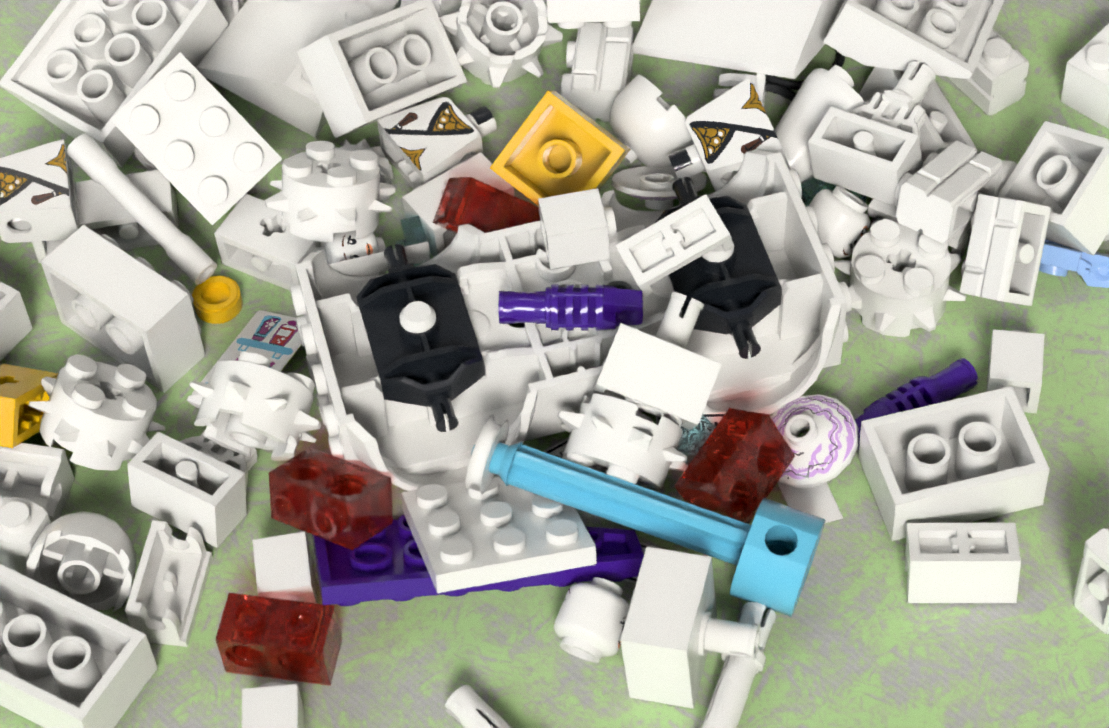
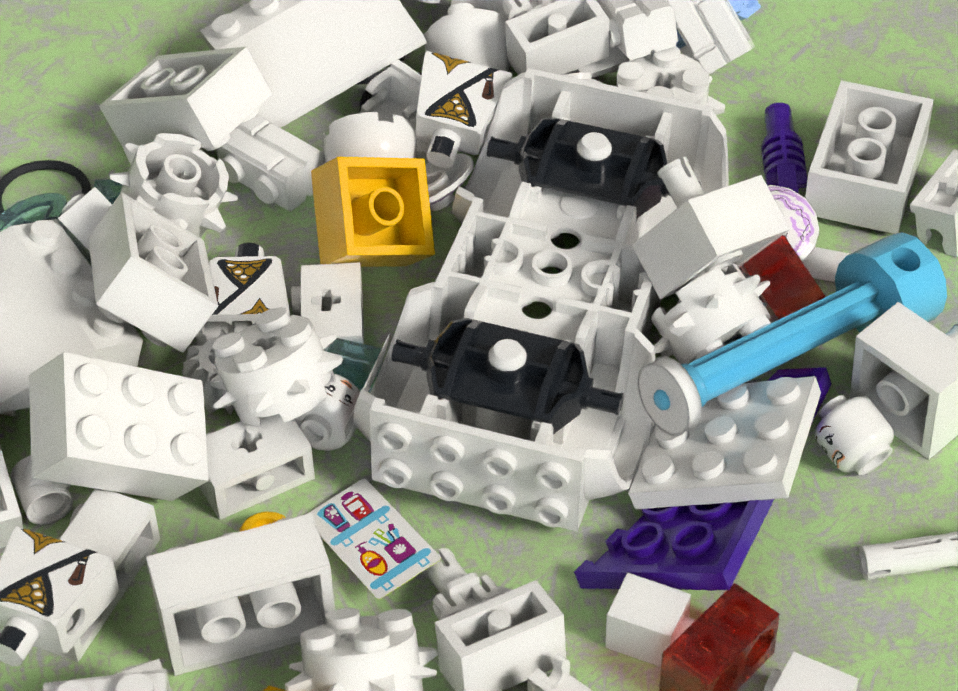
camera: 60 degrees left, 5 degrees down
(104, 171) = (76, 520): white piece -> none
(255, 407) = (488, 525): white brick -> none
(331, 498) = (607, 536): clear red brick -> none
(481, 206) = (380, 285): clear red brick -> none
(573, 307) = (581, 258): dark purple hinge -> none
(576, 228) = (501, 215): white brick -> none
(673, 242) = (594, 157): white hinge -> none
(1018, 363) = (801, 84): white brick -> none

